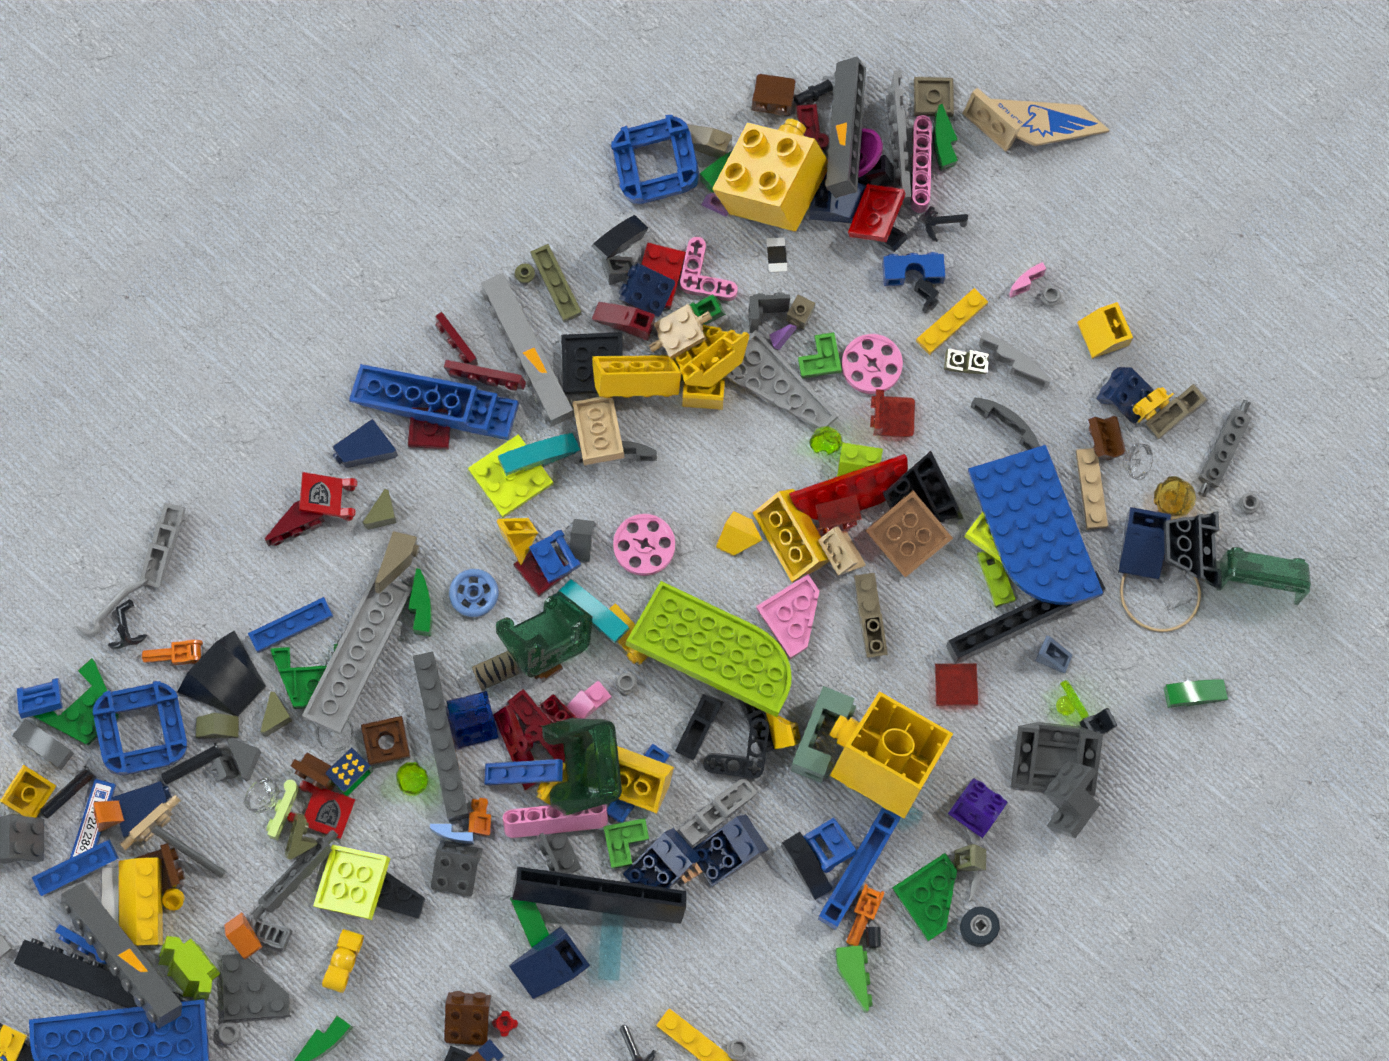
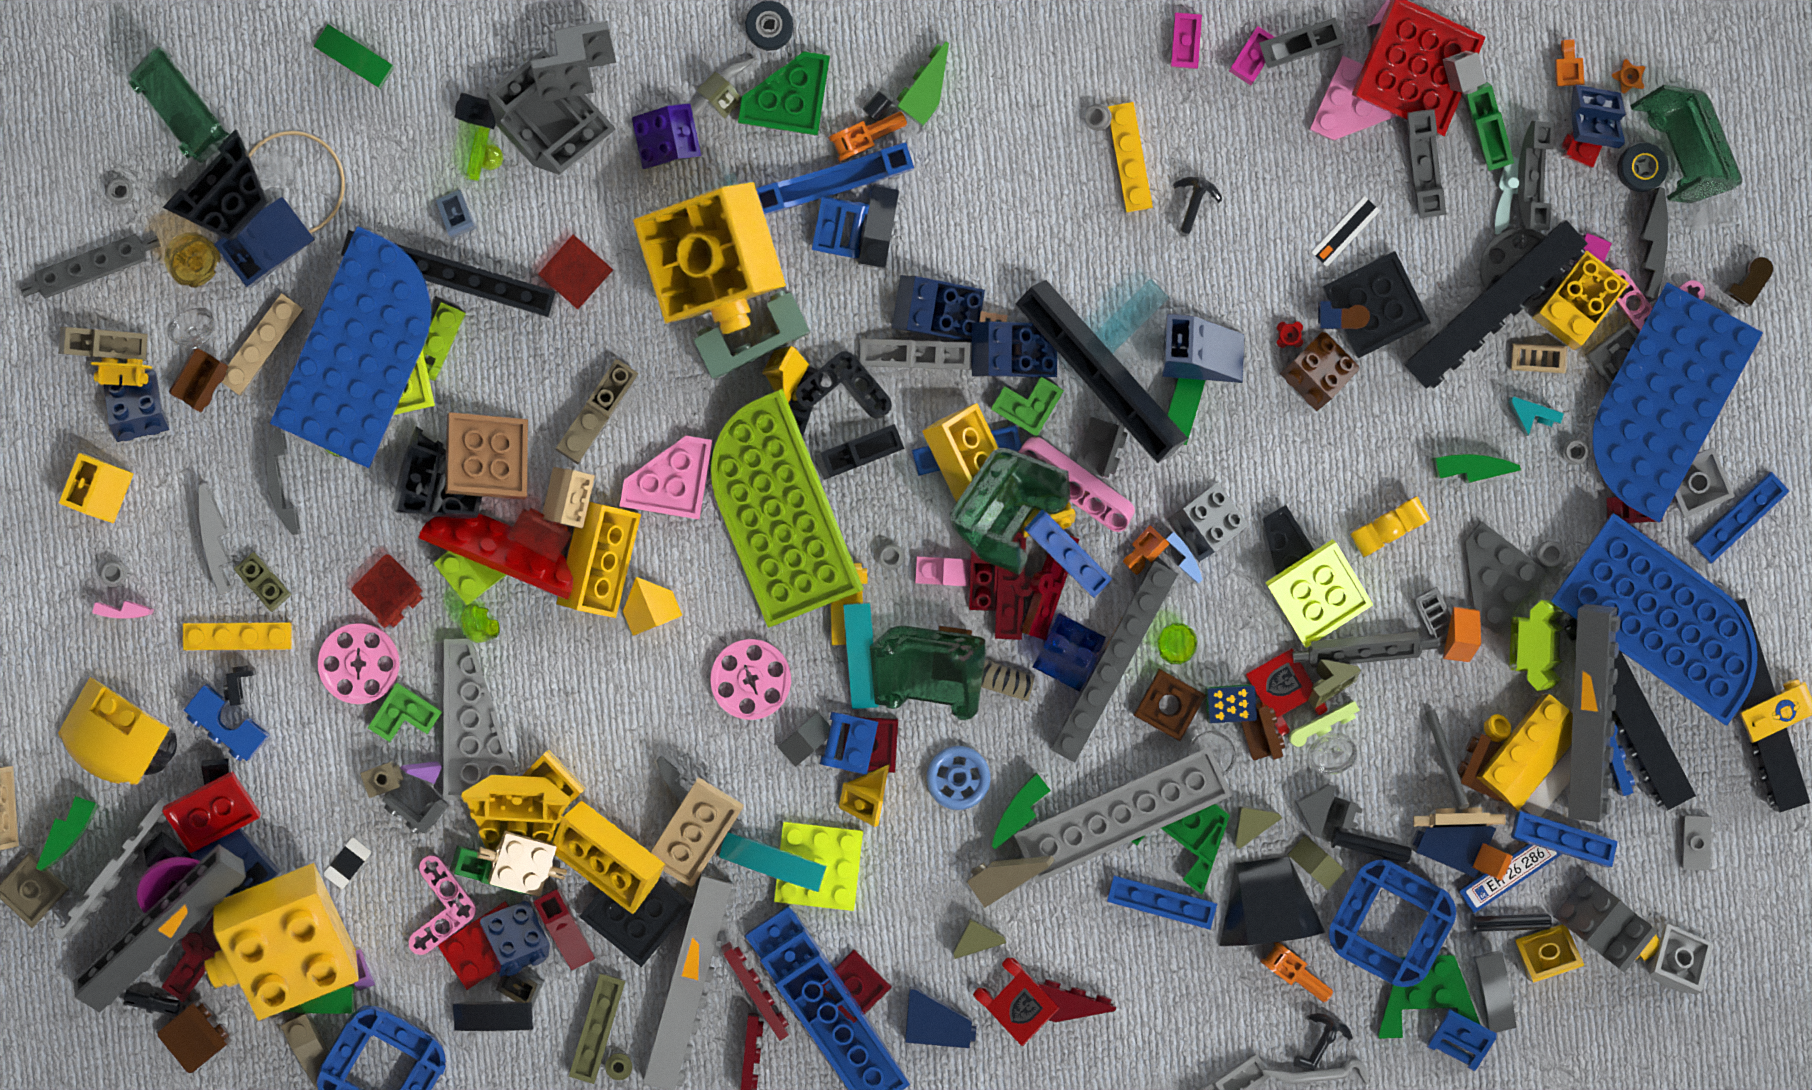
camera: 135 degrees left, 15 degrees up
(921, 172) = (102, 833): bright pink beam -> none
(969, 207) = (111, 735): none -> yellow slope

